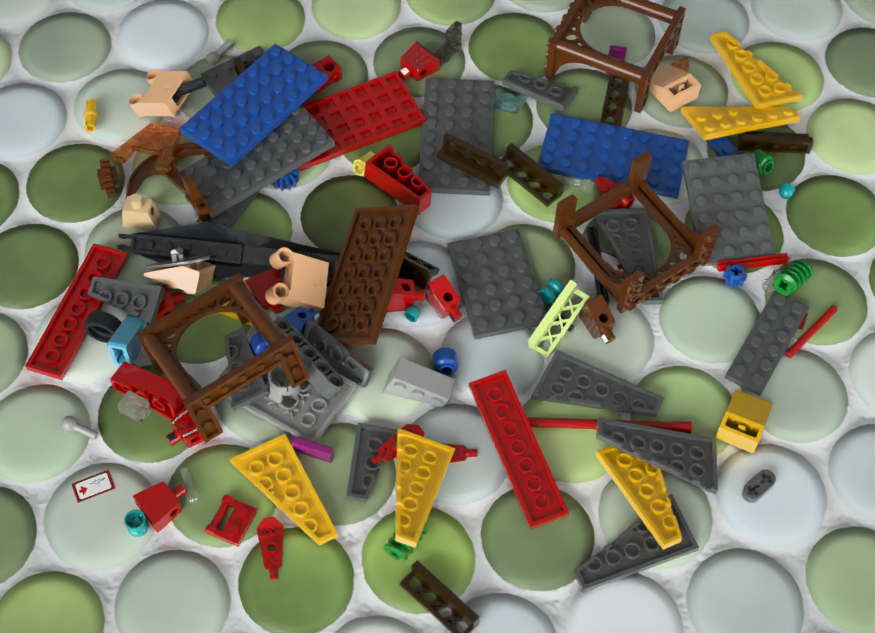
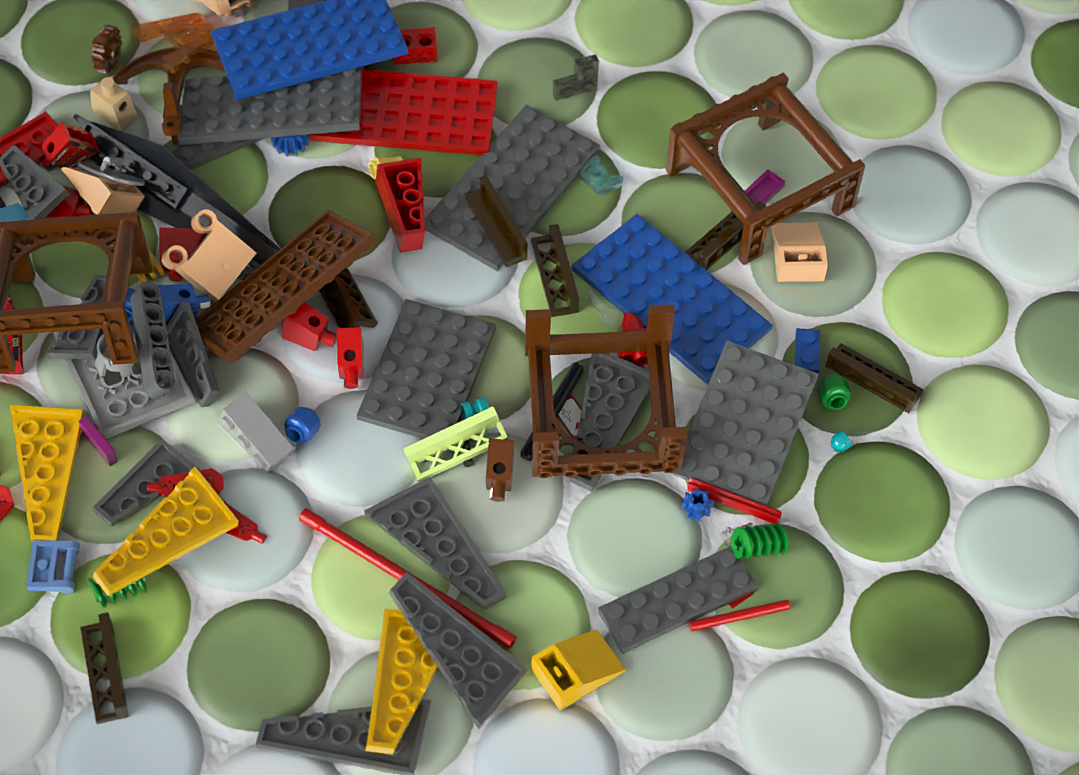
camera: 30 degrees right, 0 degrees up
(133, 259) = (67, 147): none -> red torso
(341, 555) = (44, 566): none -> medium blue plate
(412, 313) = (310, 354): teal hinge -> none
(418, 63) = (529, 83): red torso -> none
(518, 449) = (302, 559): red plate -> none
(539, 89) = (646, 182): dark grey wing -> none
(682, 64) = (834, 235): clear orange tile -> none
(727, 121) = (834, 324): yellow wing -> none
(754, 76) = (911, 291): yellow wing -> none
(762, 489) = (537, 743): dark grey beam -> none

